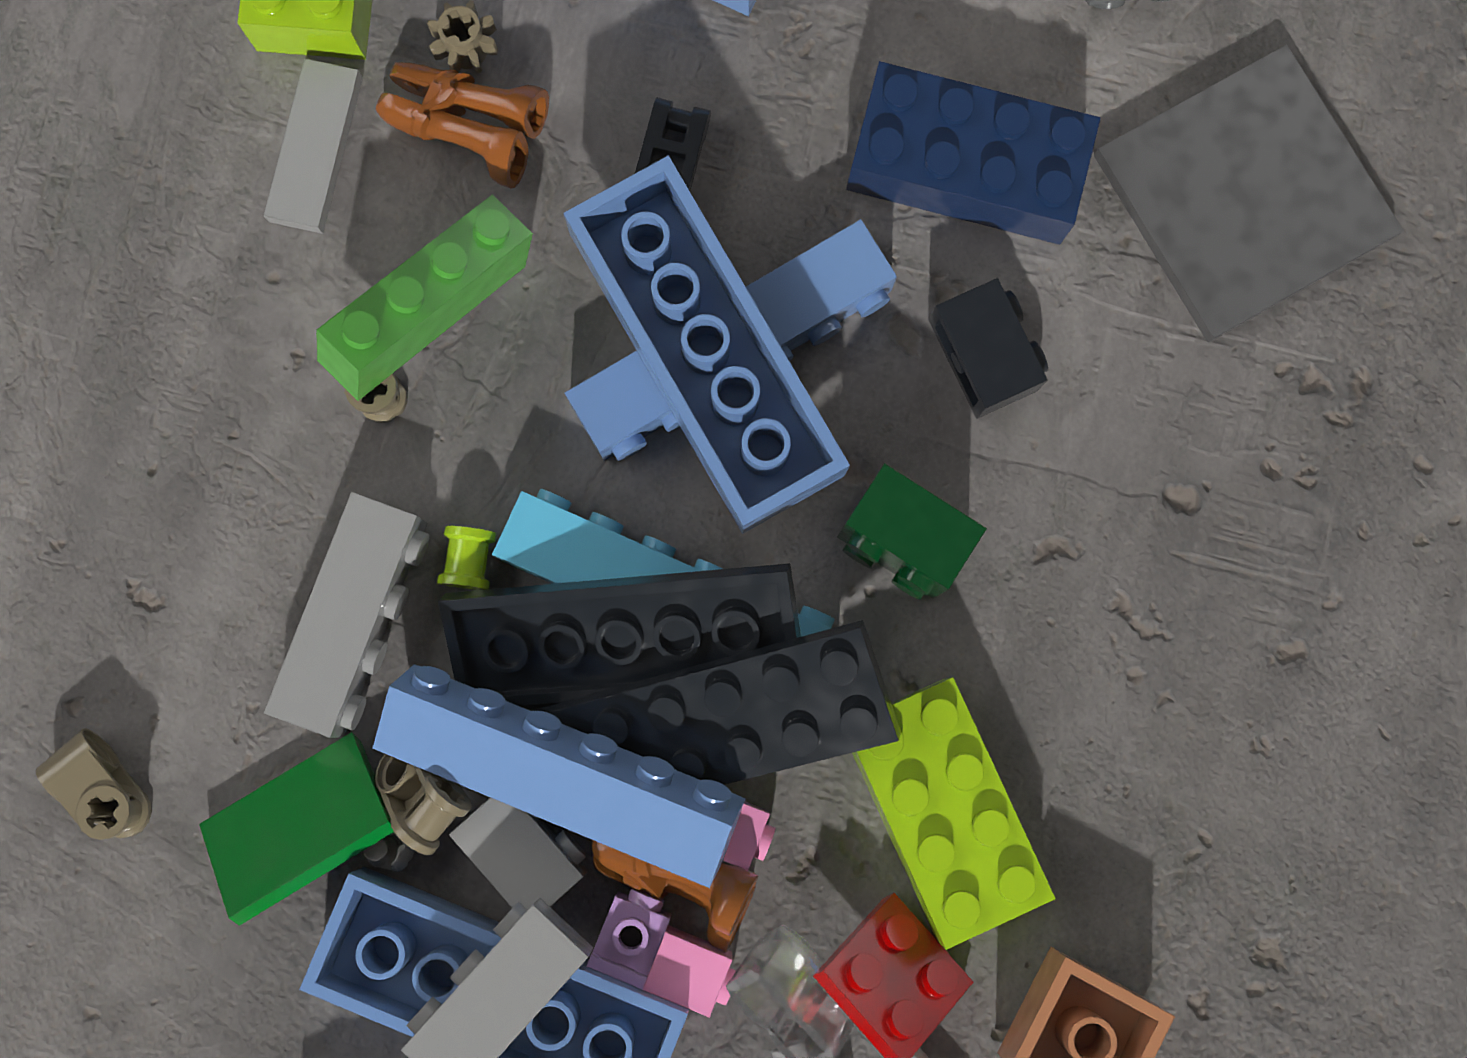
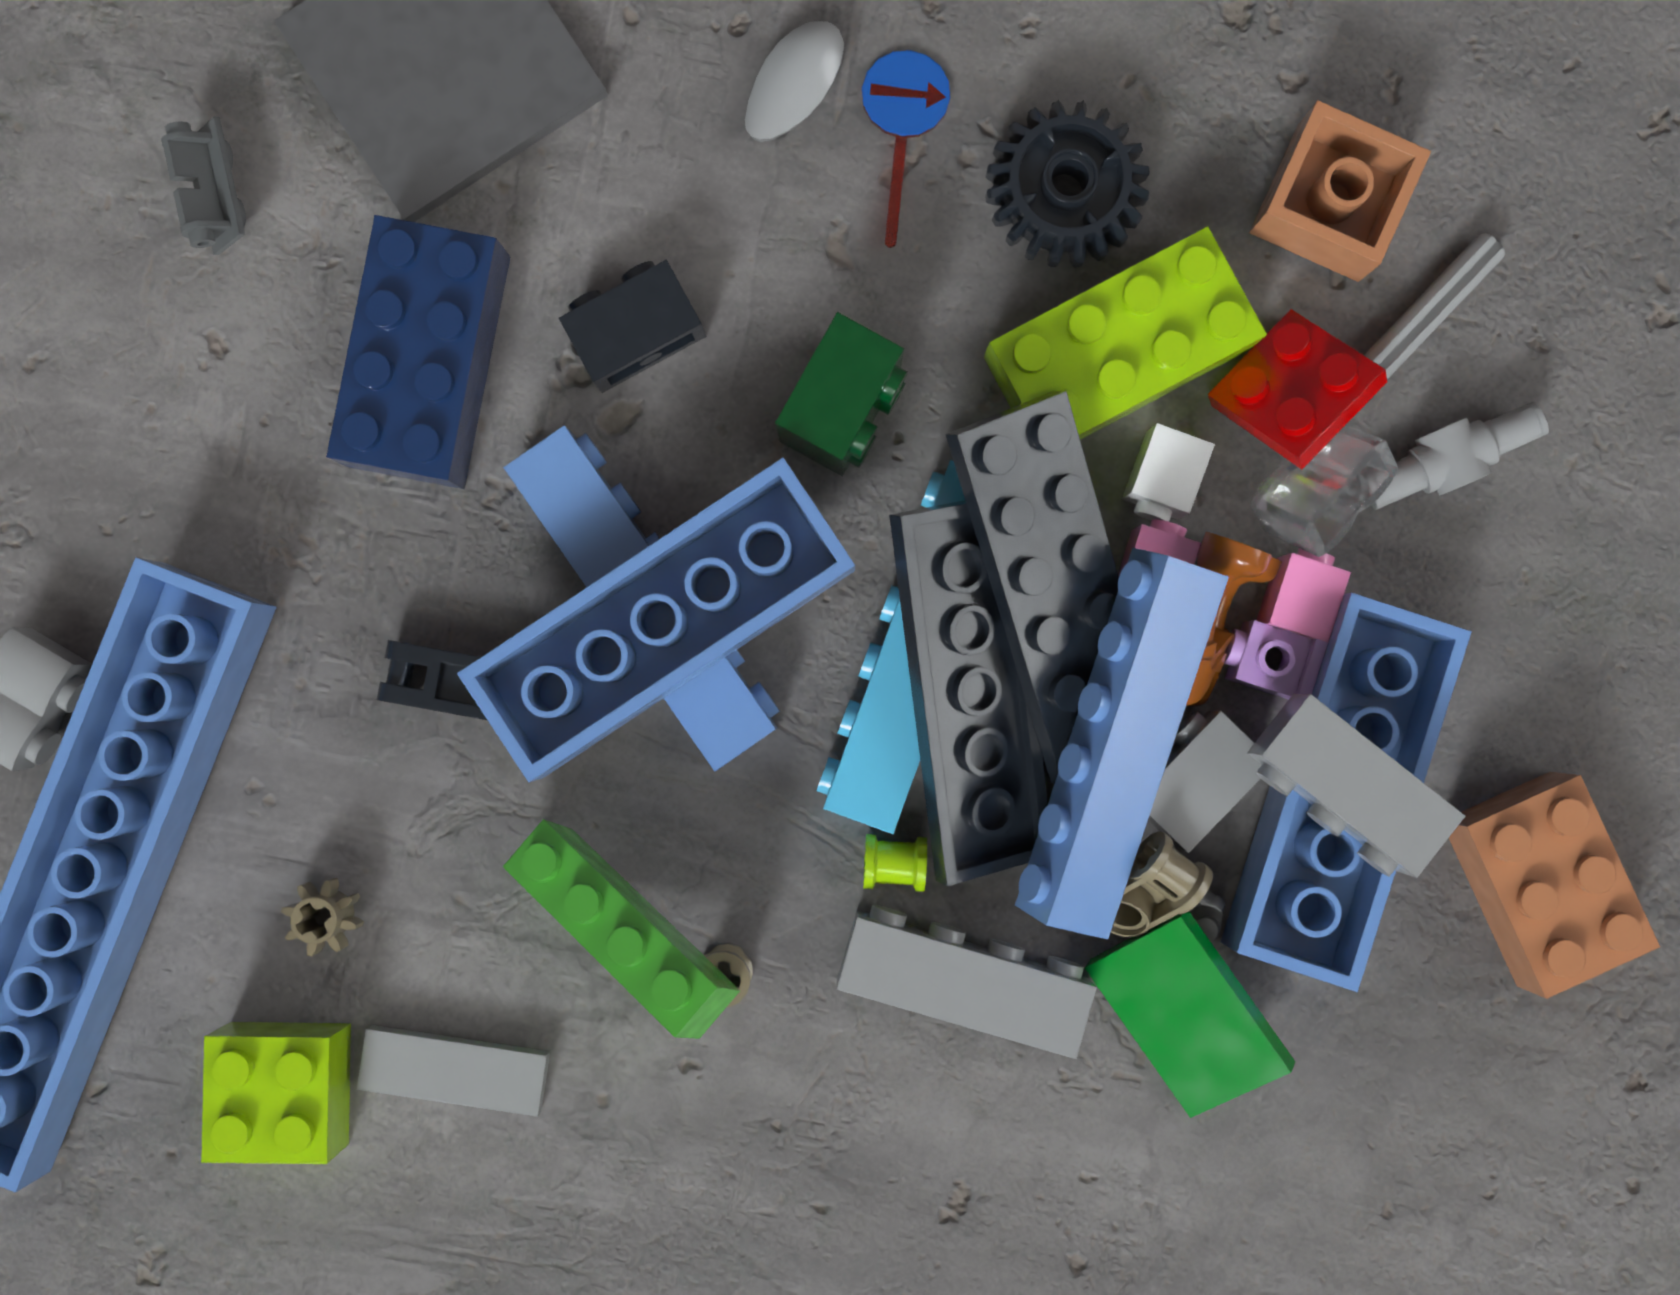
camera: 85 degrees left, 5 degrees up
(87, 780) = (1155, 1237): dark tan piece -> none
(444, 103) = (391, 926): dark orange piece -> none
(817, 845) = (1167, 473): none -> white brick
(1140, 772) = (1073, 148): none -> black gear
(1194, 619) = (904, 98): none -> blue piece
(1215, 514) = (794, 79): none -> light grey arm

